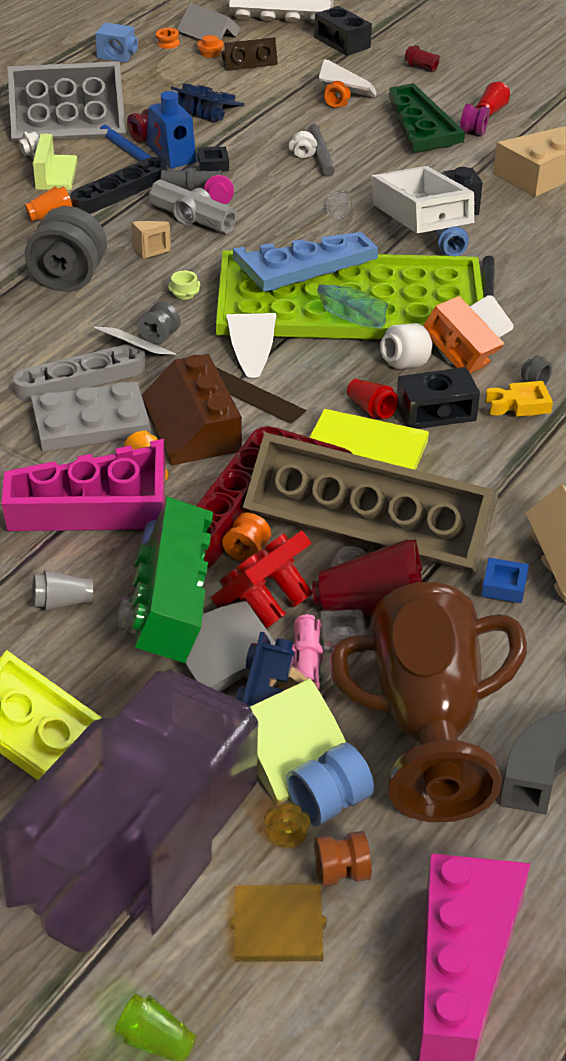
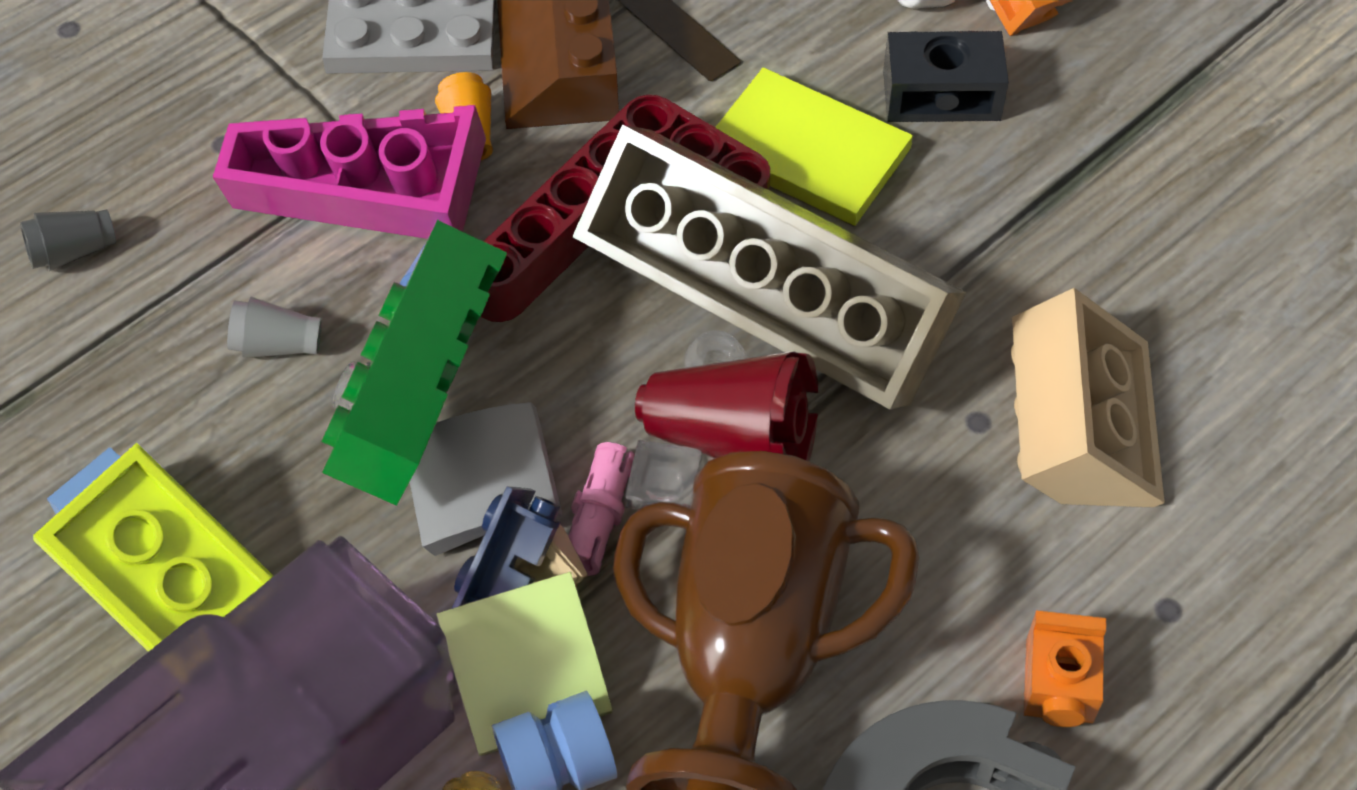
camera: 15 degrees right, 15 degrees up
(246, 537) = (570, 285): orange wheel -> none
(272, 562) = (583, 342): red plate -> none
(373, 398) = (846, 61): red cone -> none
(505, 580) = (944, 431): blue plate -> none
(523, 398) = (1084, 96): yellow plate -> none
(536, 370) = (1122, 49): dark grey plate -> none

